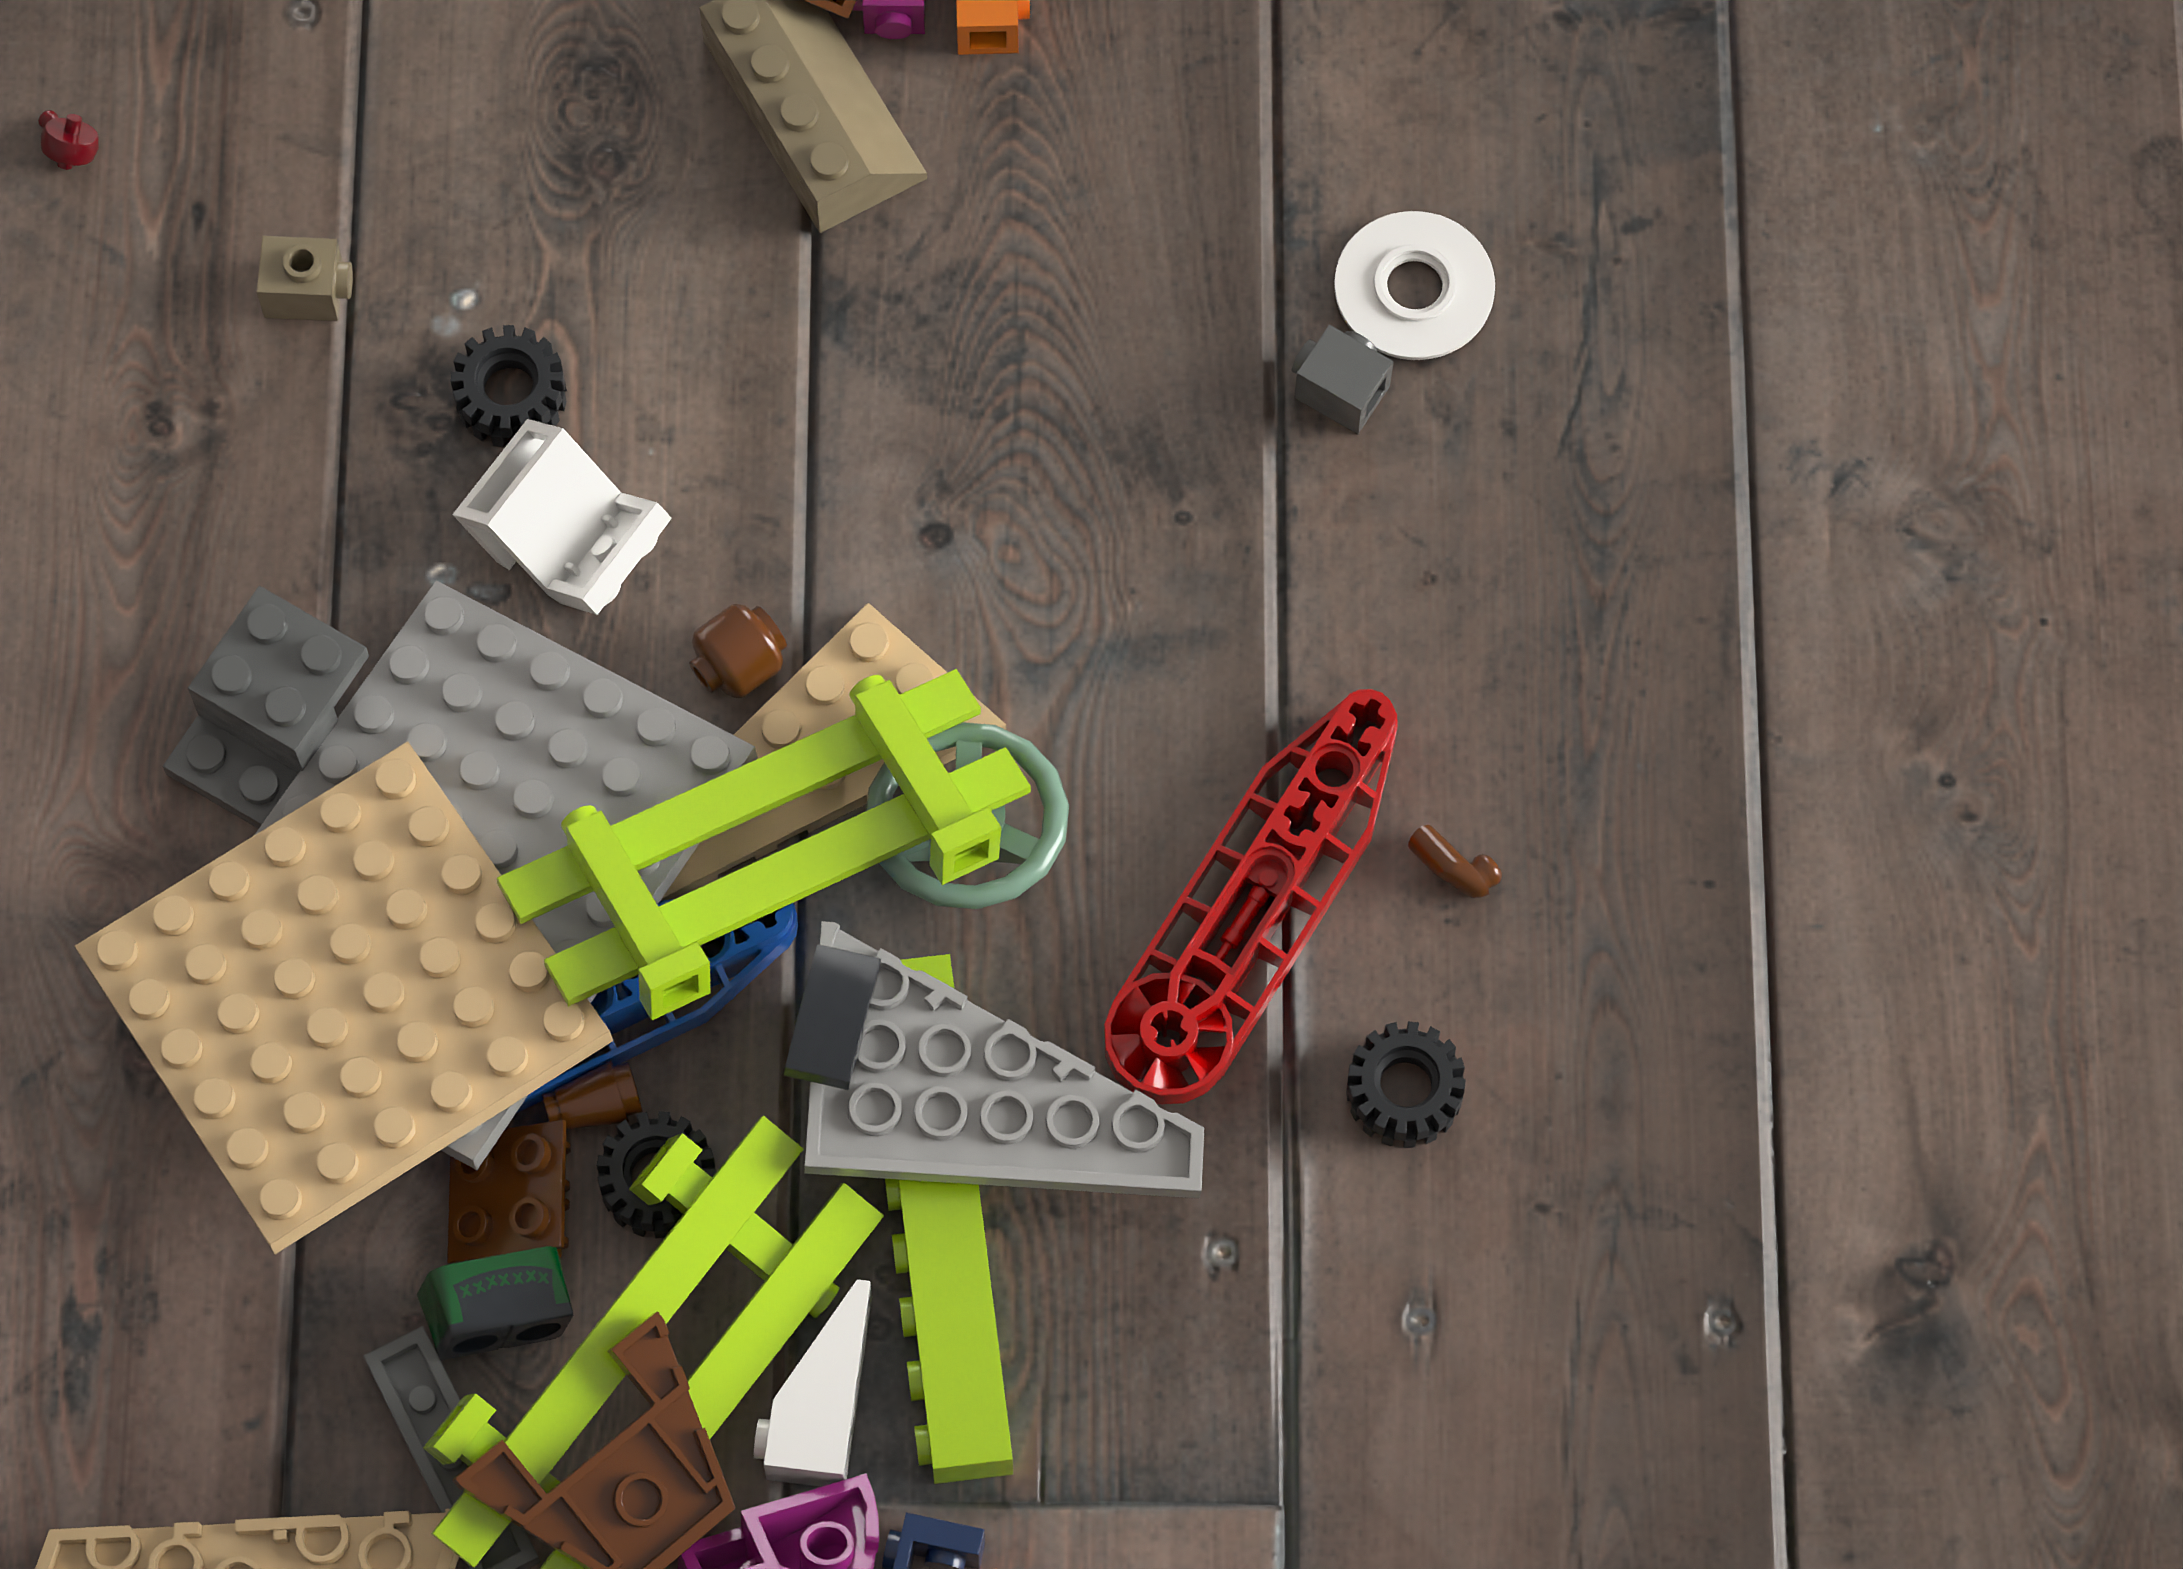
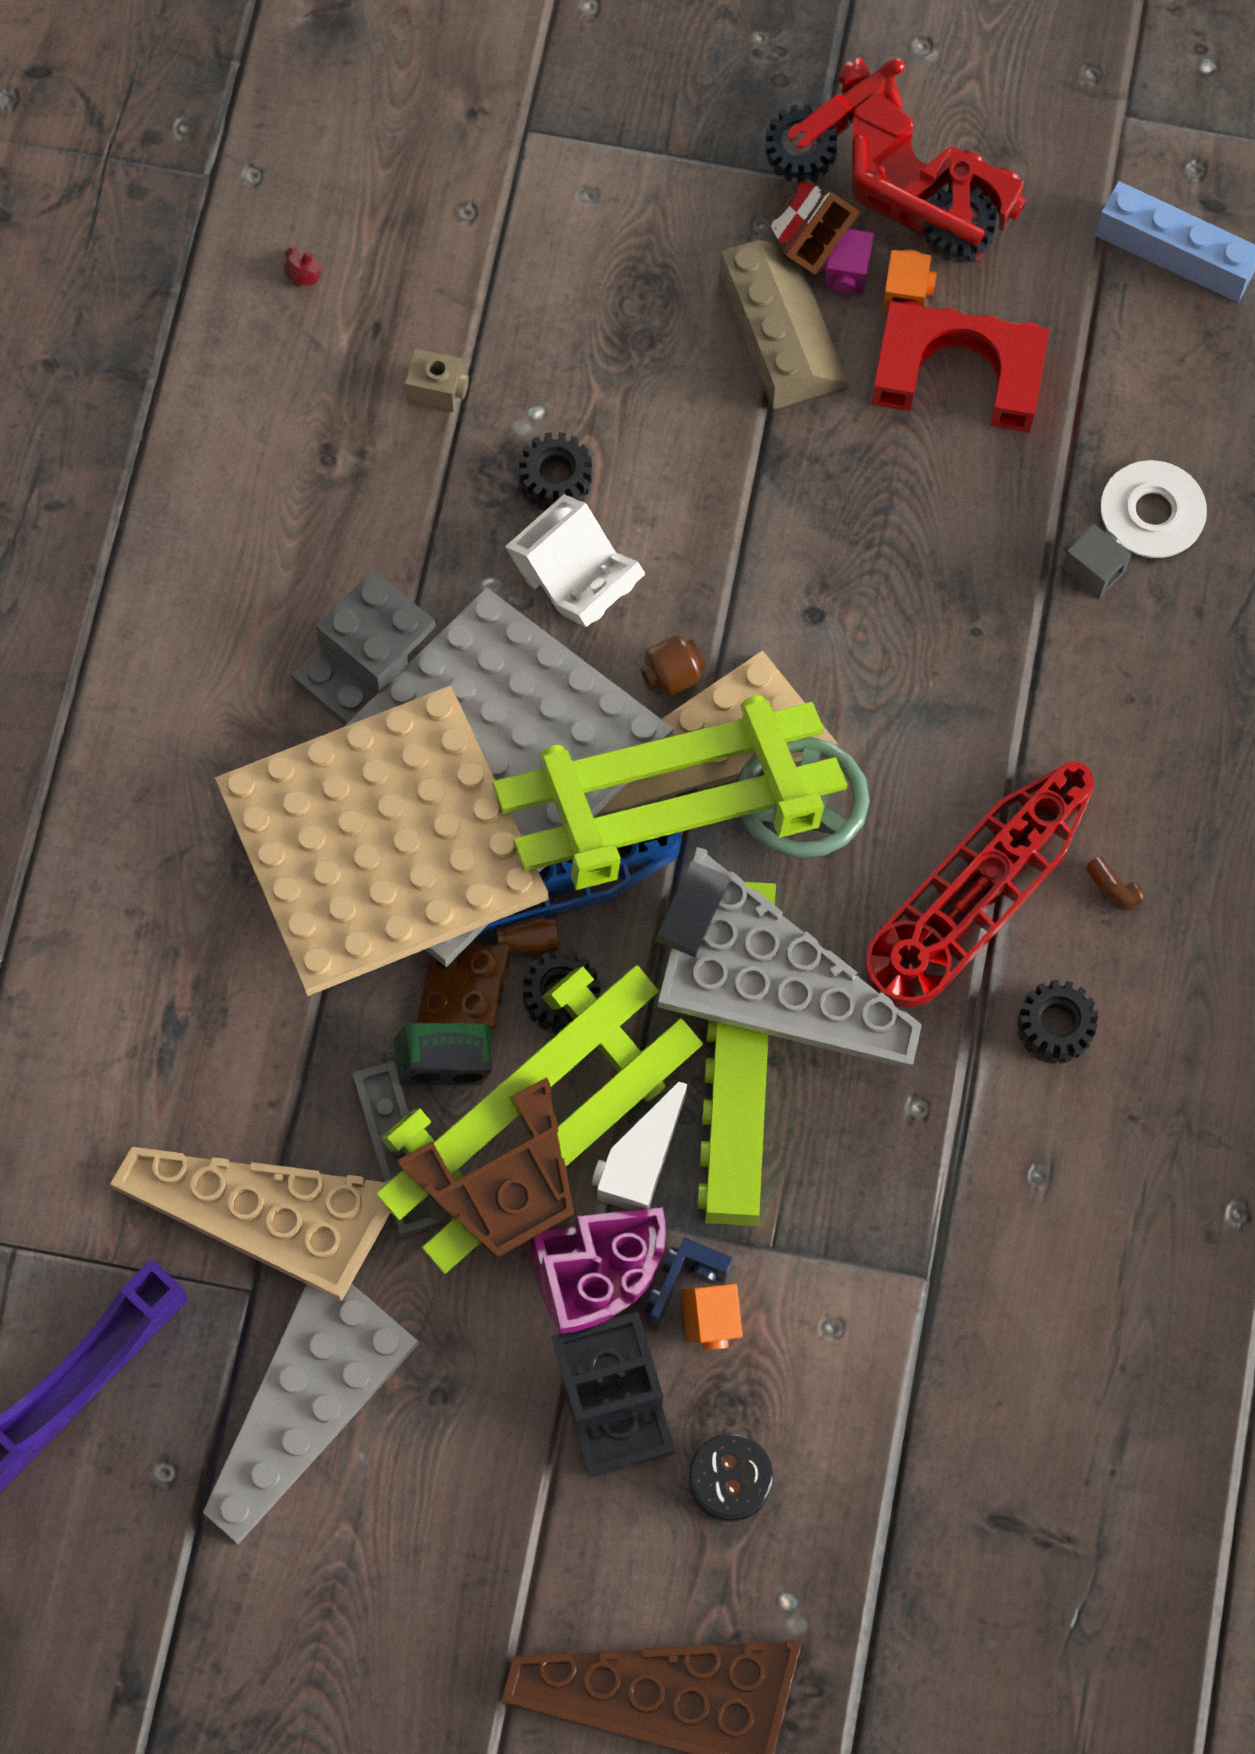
camera: 10 degrees right, 0 degrees up
(1160, 79) = (1011, 348): none -> red arch

